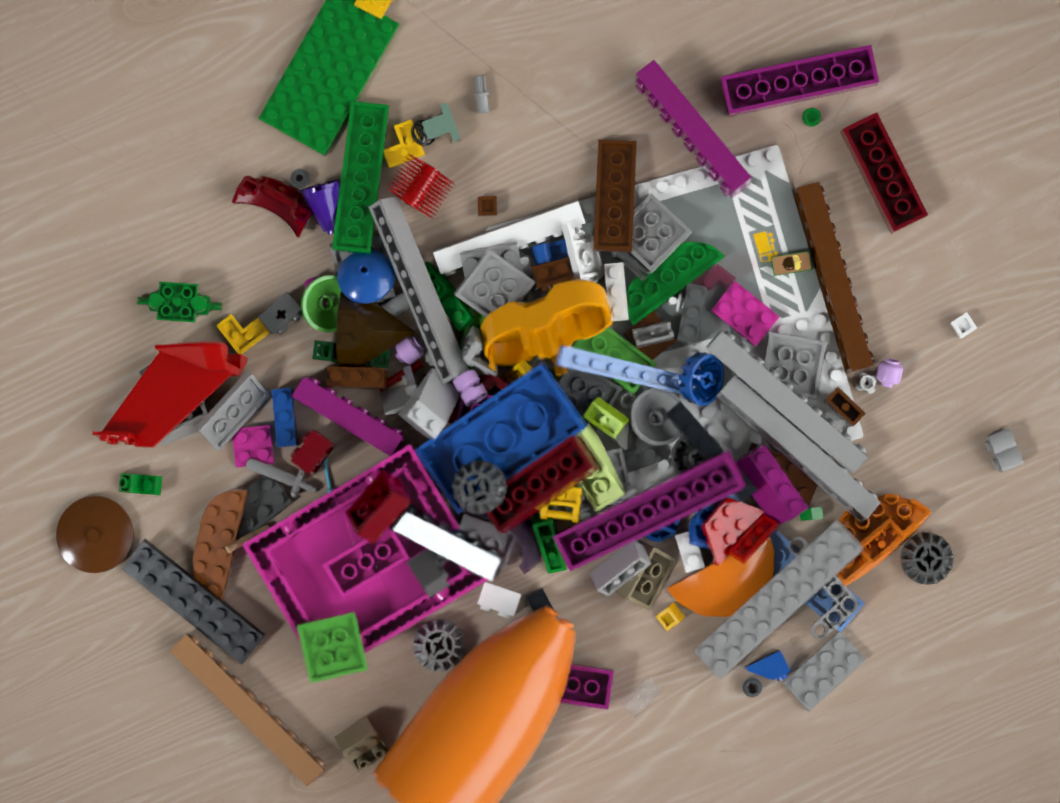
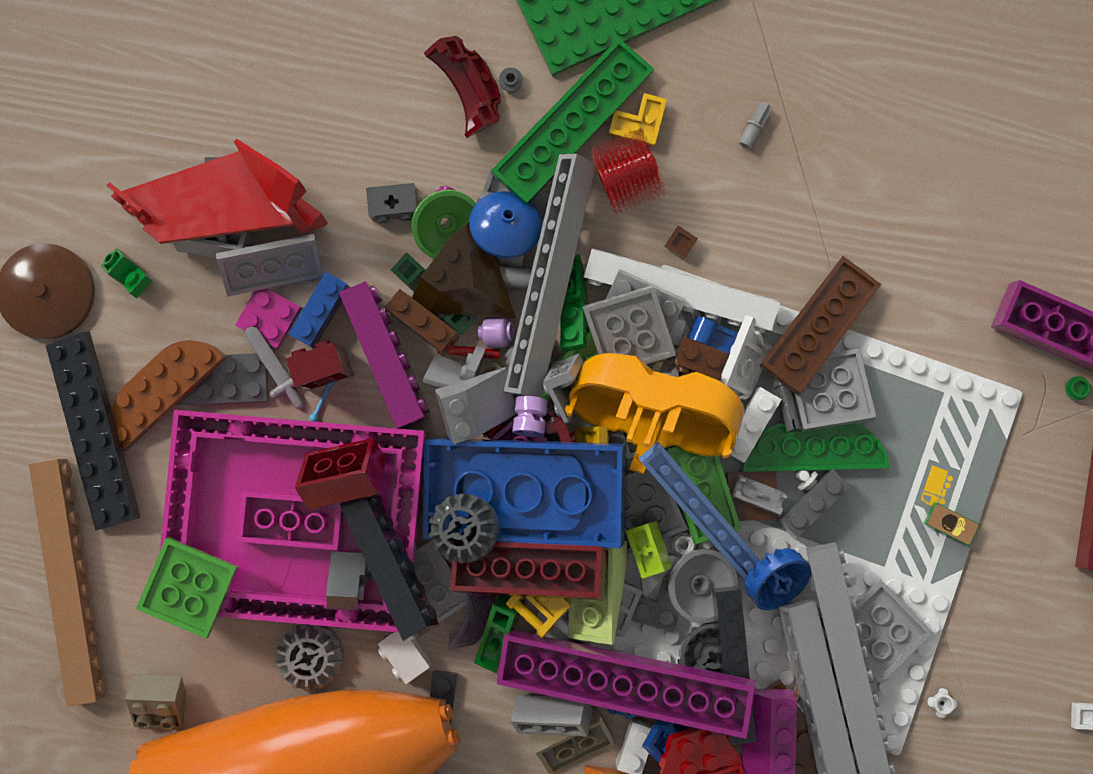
camera: 30 degrees right, 0 degrees up
(178, 302) = (297, 116): green piece -> none
(237, 544) = (191, 406): tan piece -> none
(242, 338) = (336, 199): yellow plate -> none
(324, 203) = (516, 119): dark purple cone -> none
(436, 127) = (686, 125): sand green piece -> none
(693, 129) = (950, 313): magenta brick -> none
(718, 275) = (869, 483): clear pink piece -> none
(745, 313) = (867, 542): dark pink plate -> none
(833, 277) = (985, 570): reddish brown brick -> none
(844, 407) = (905, 715): reddish brown brick -> none
(889, 372) = (974, 710): lavender head -> none

